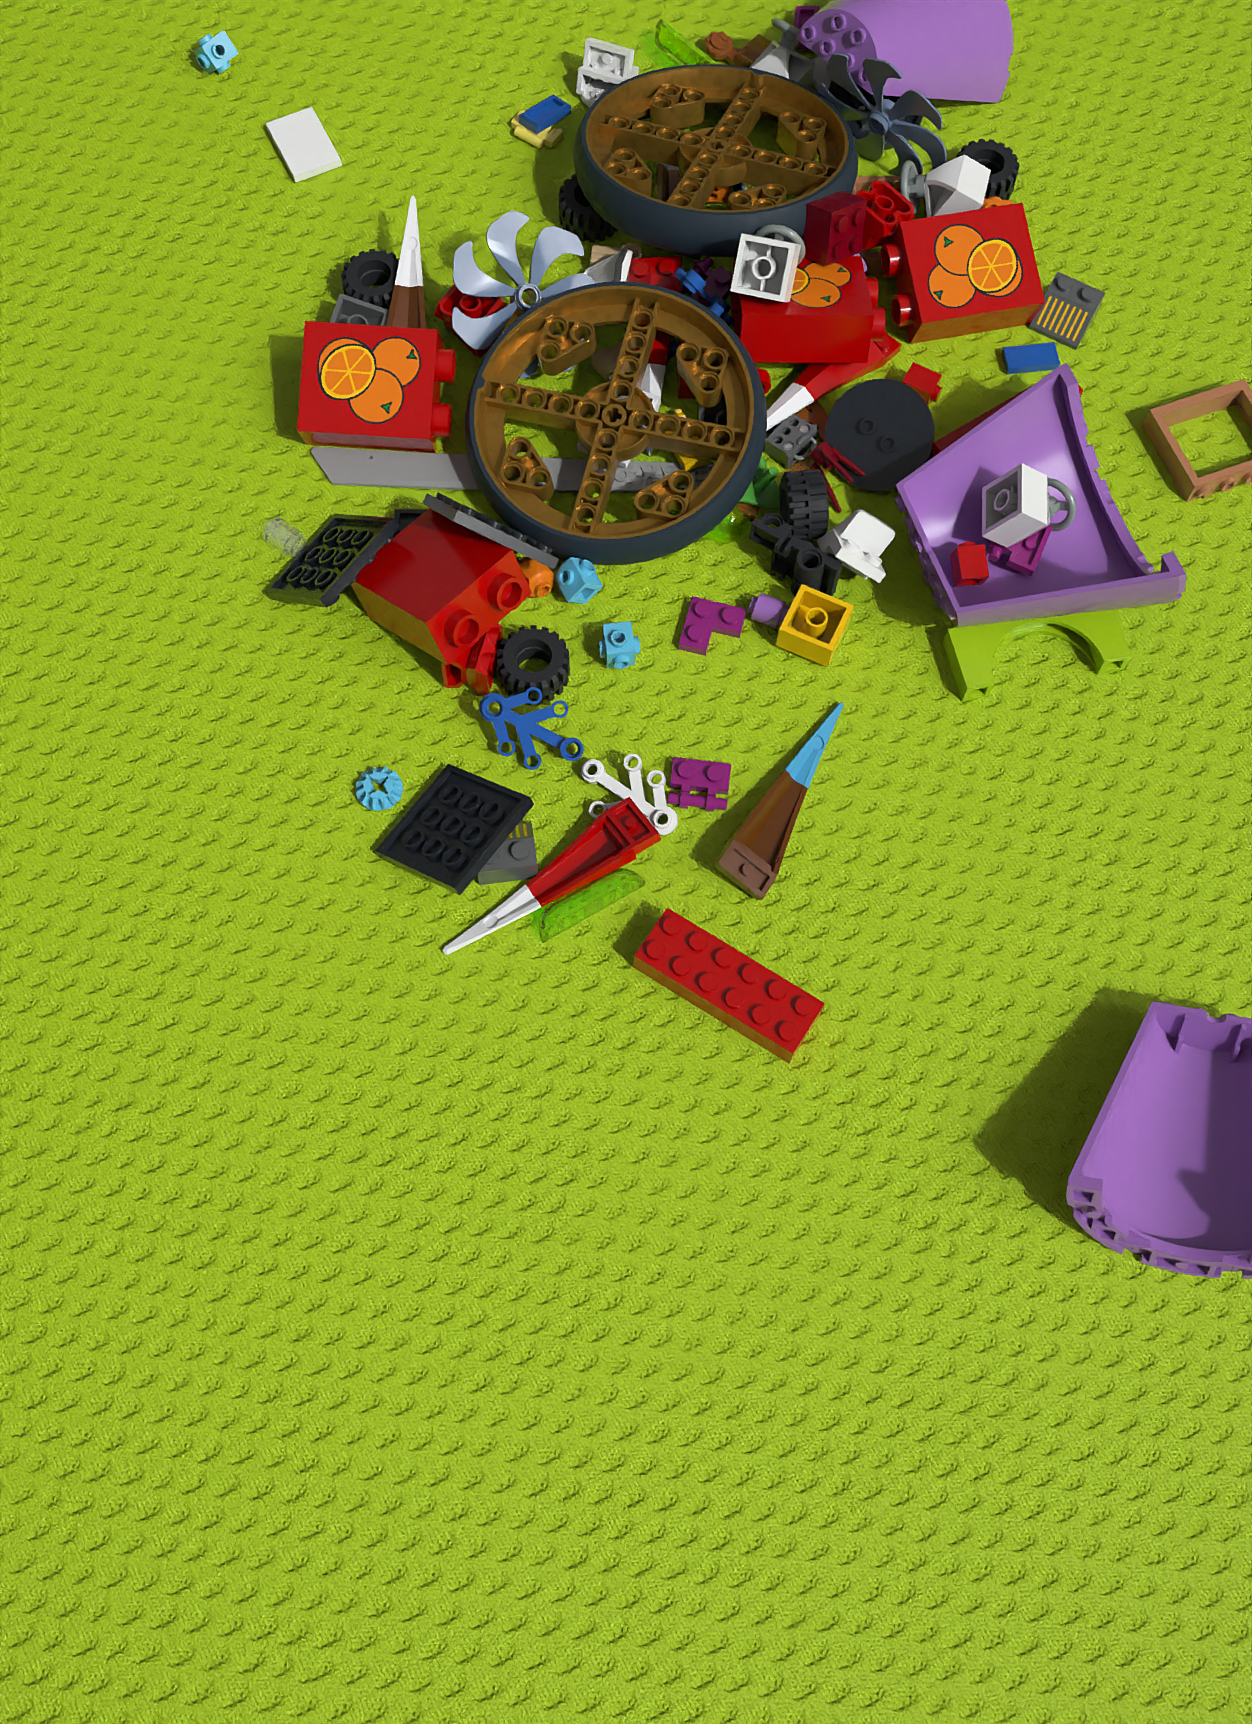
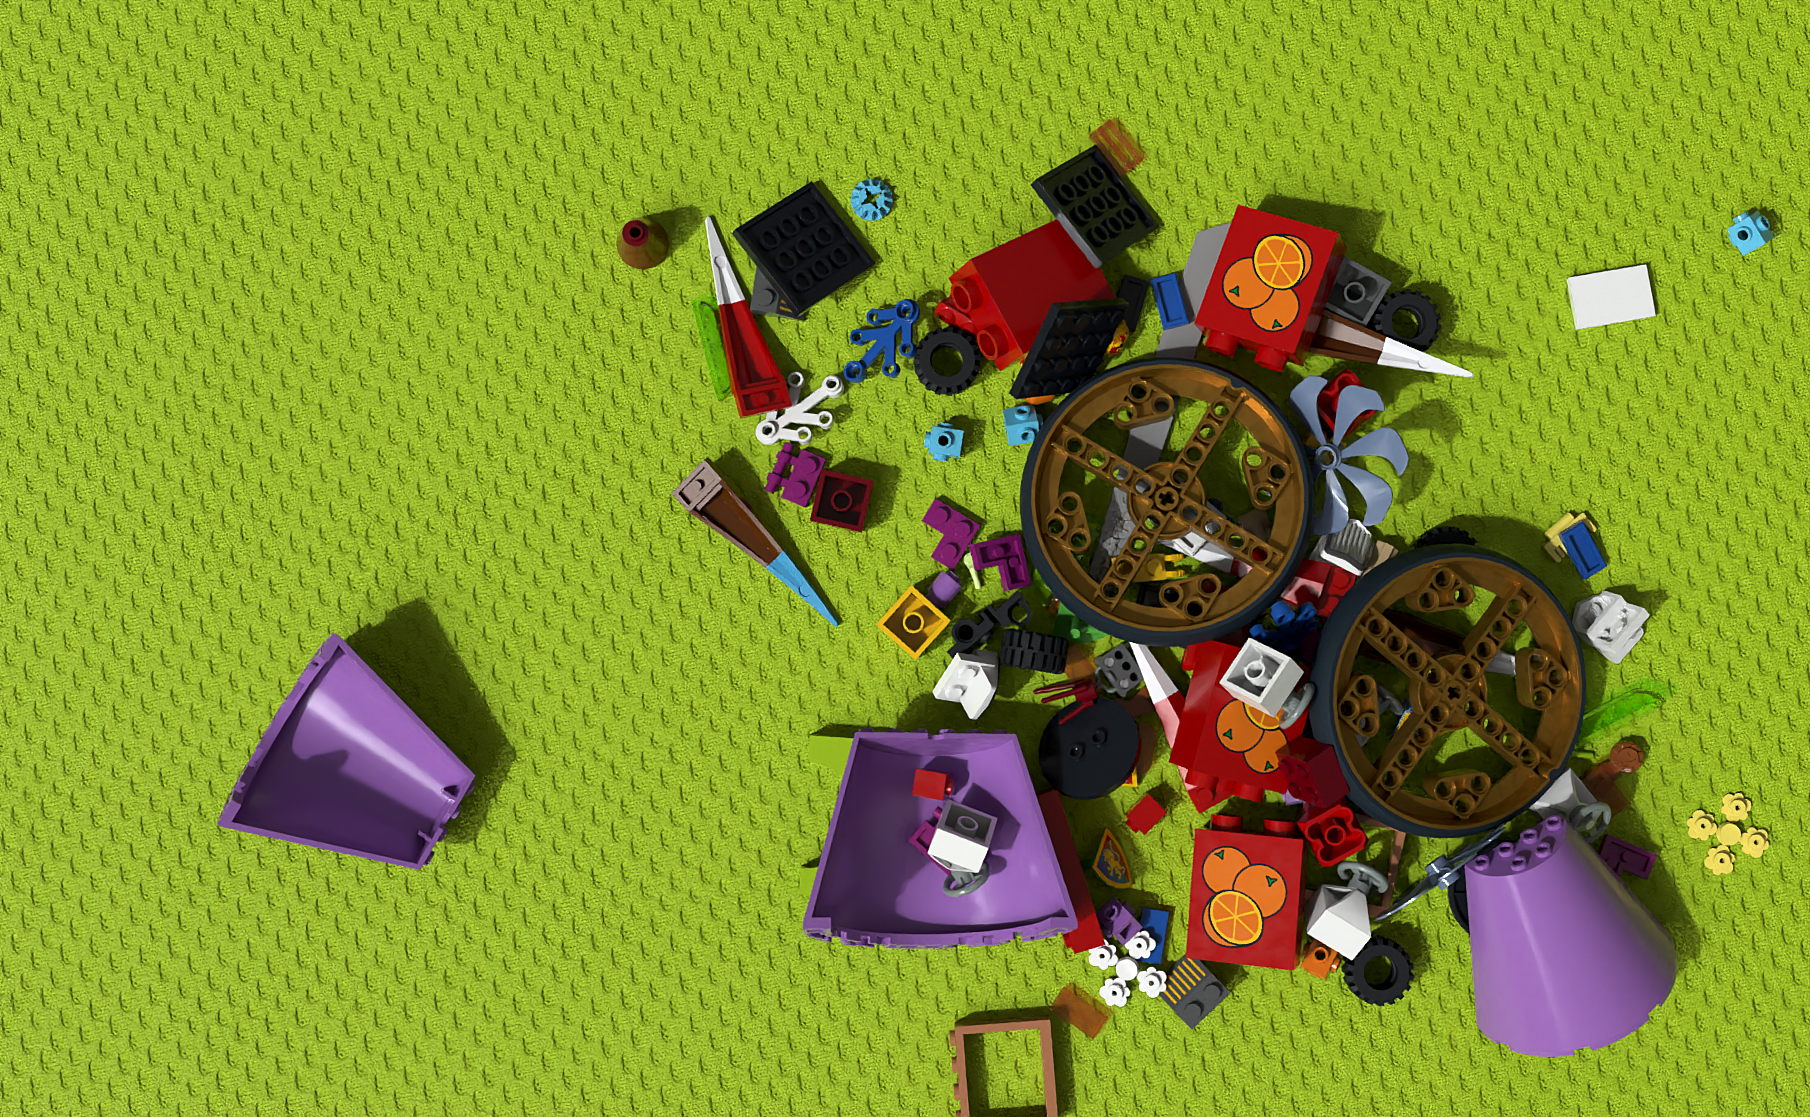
camera: 110 degrees right, 20 degrees up
(266, 576) = (1123, 141): none -> clear orange tile
(283, 536) = (1146, 173): clear brick -> none
(410, 486) = (1169, 301): none -> blue tile
(492, 1011) = (642, 243): none -> cone
(714, 724) = (841, 501): none -> dark red brick
(717, 563) = (1007, 555): none -> magenta plate
(728, 985) = (603, 439): red brick -> none
(732, 597) = (969, 563): none -> yellowish green hand
(981, 400) = (1109, 862): none -> shield
(1028, 369) = (1118, 920): none -> medium lavender brick
(1074, 344) = (1128, 969): none -> white plant
(1128, 399) = (1078, 1012): none -> clear orange tile

